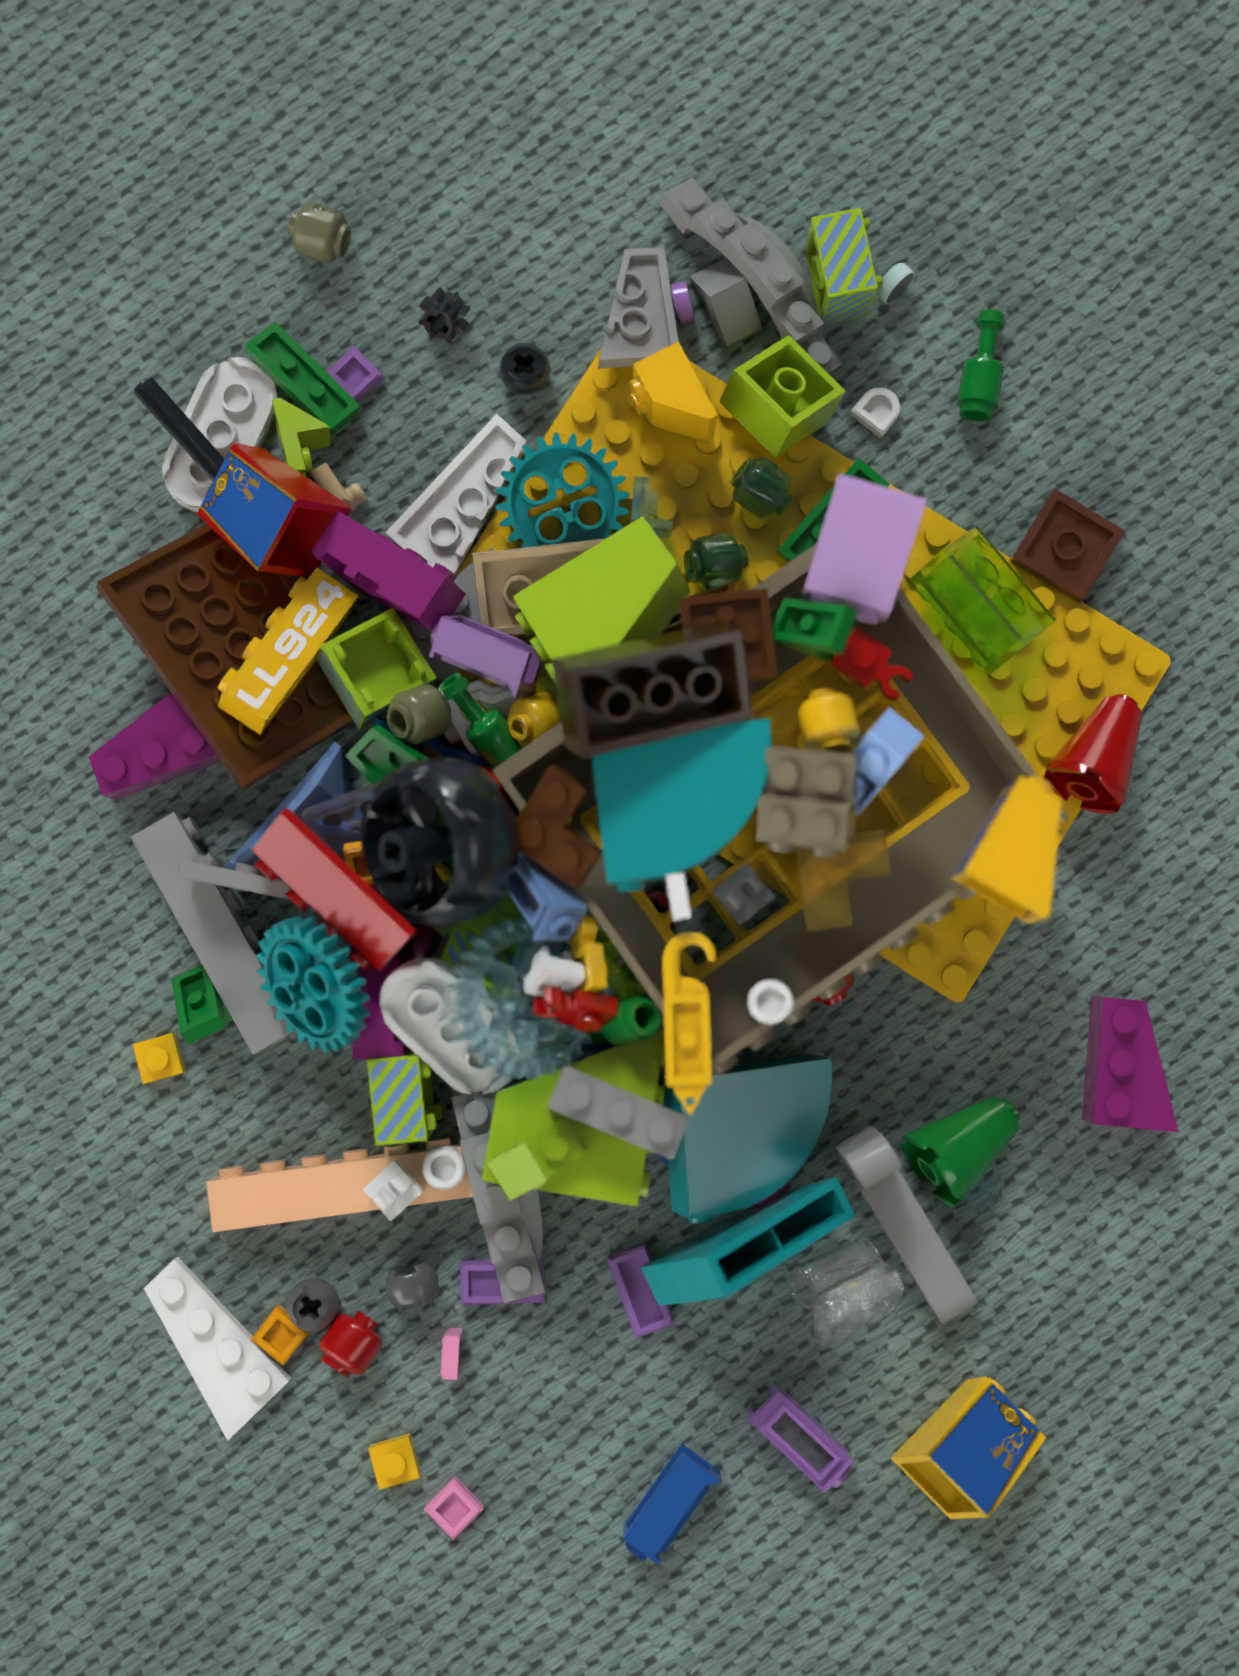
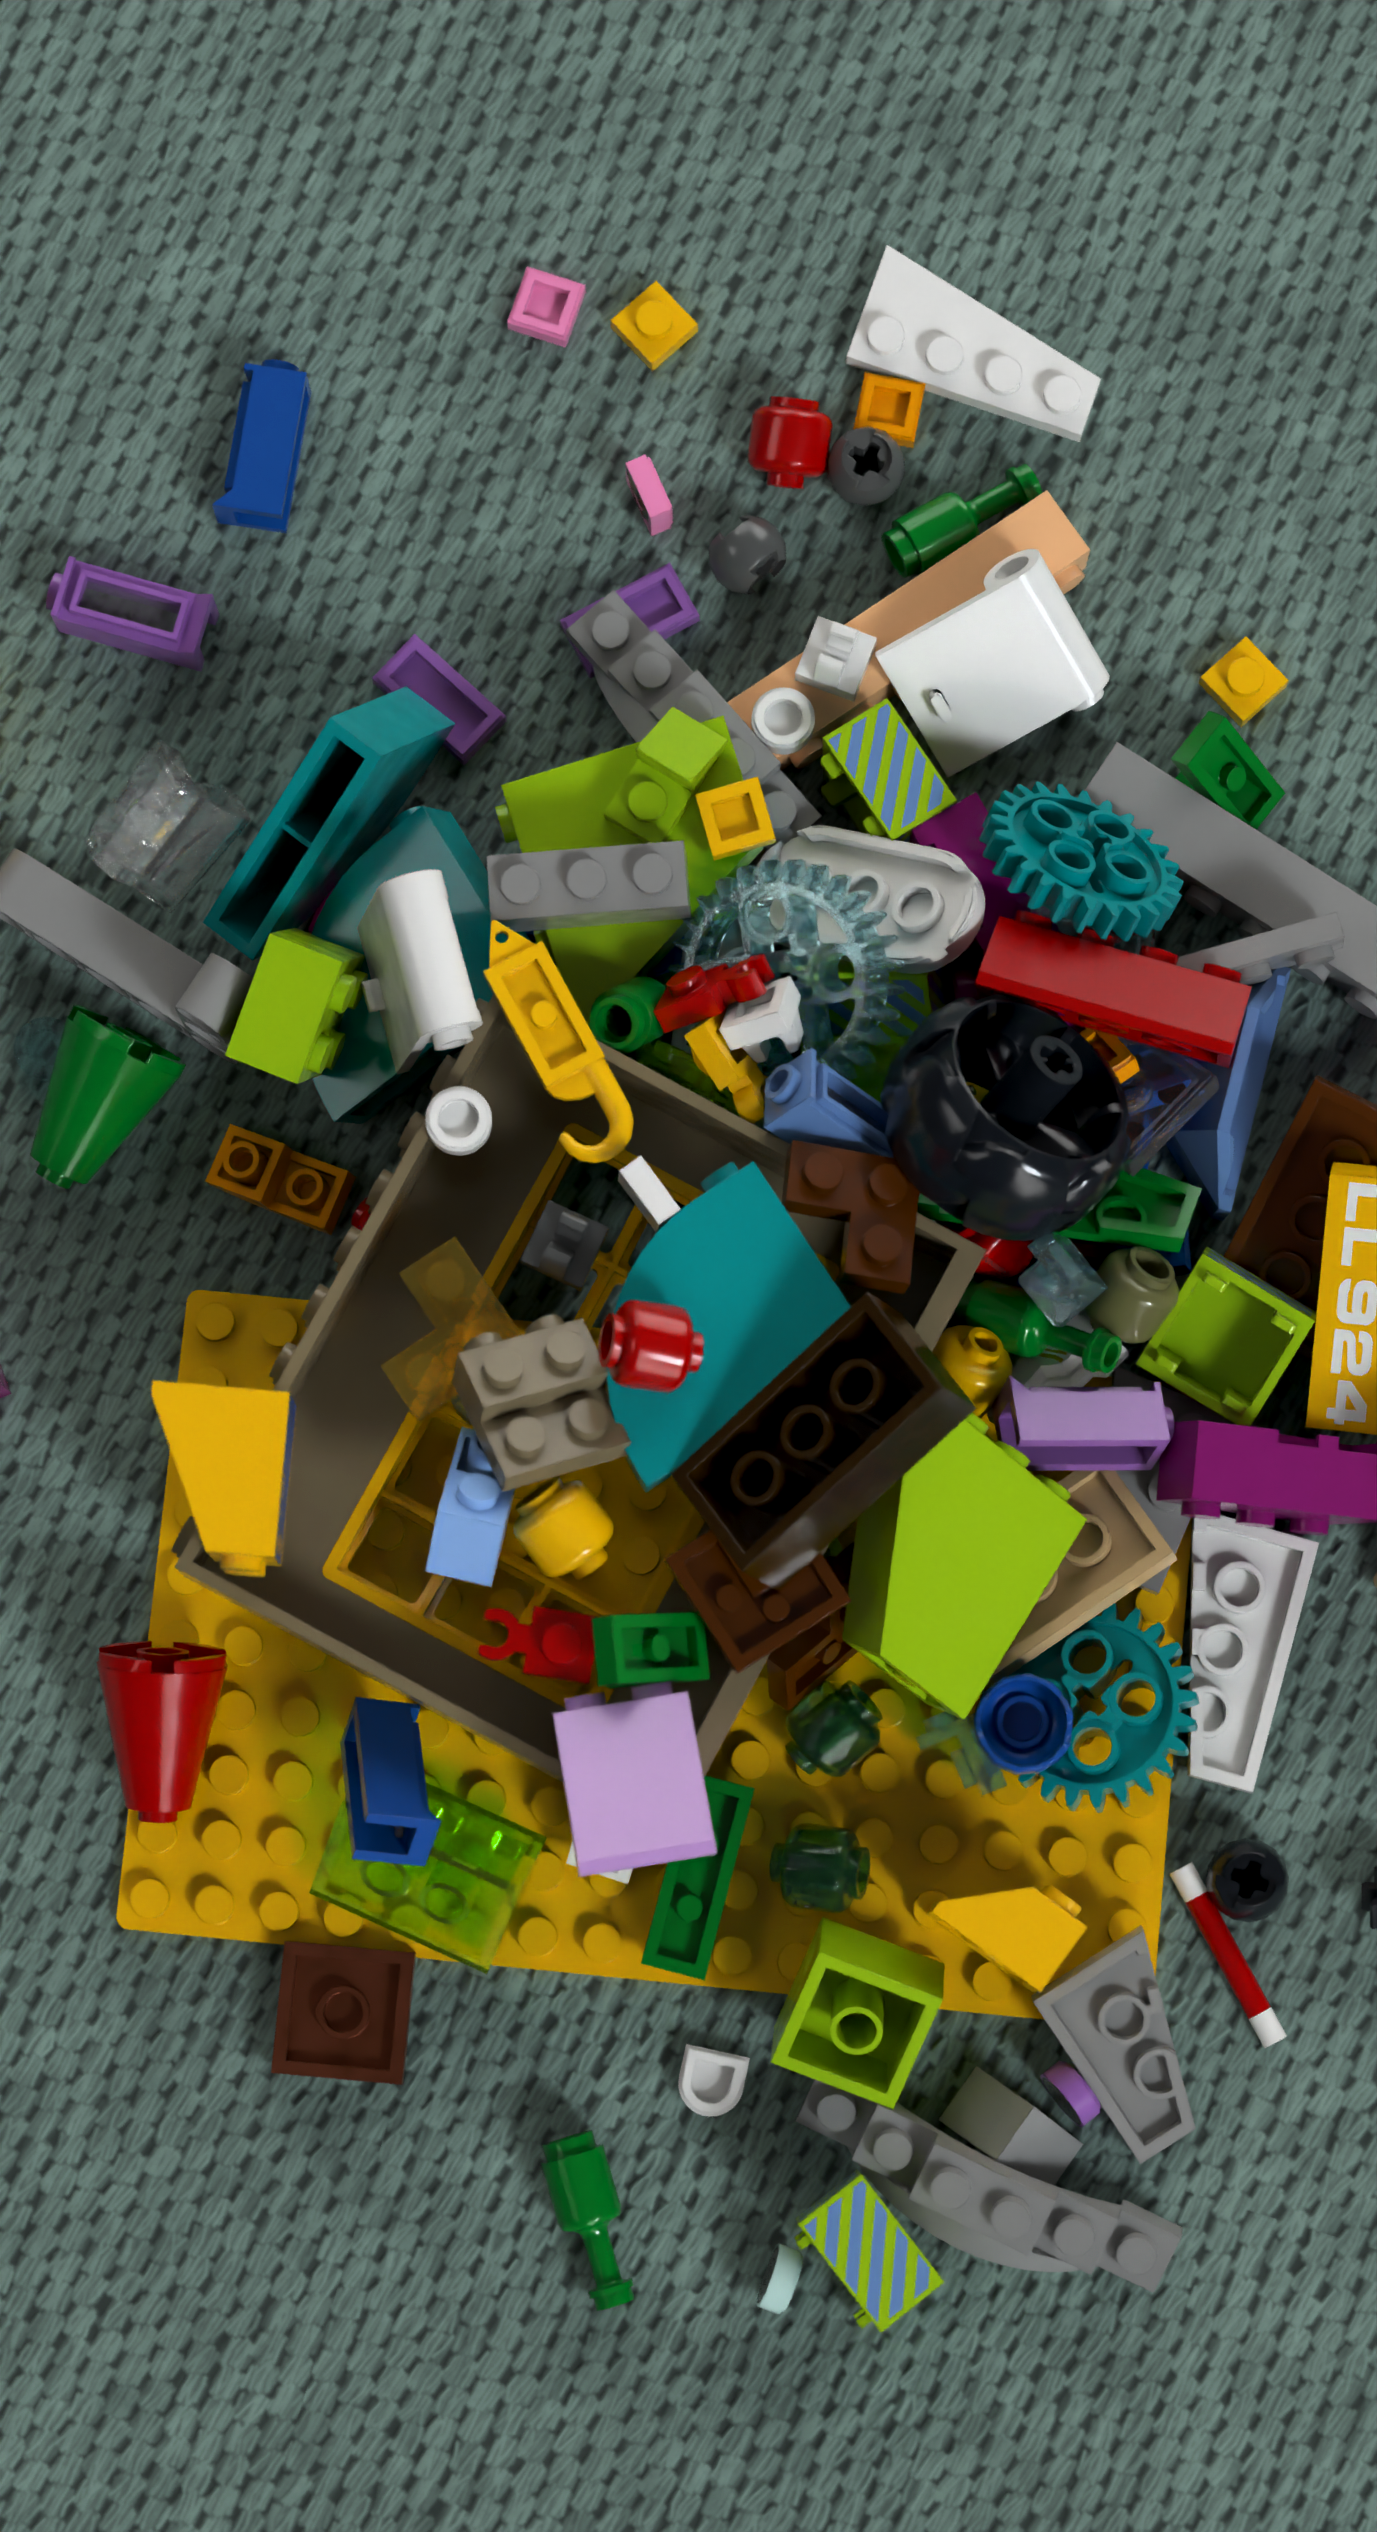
camera: 150 degrees right, 5 degrees down
(282, 1242) = (949, 522): none -> green piece
(298, 1139) = (1000, 663): none -> white door
(456, 737) = (1060, 1279): none -> clear light blue bracket
(507, 1110) = (735, 818): none -> yellow plate
(556, 337) = (1228, 1955): none -> red bar
(609, 498) = (1023, 1724): none -> blue hair
(727, 796) = (650, 1346): none -> red head
(746, 1111) = (416, 968): none -> white door
(826, 1132) = (297, 1006): none -> lime brick
(875, 1043) = (280, 1179): none -> light orange slope
(995, 641) = (386, 1784): none -> blue window

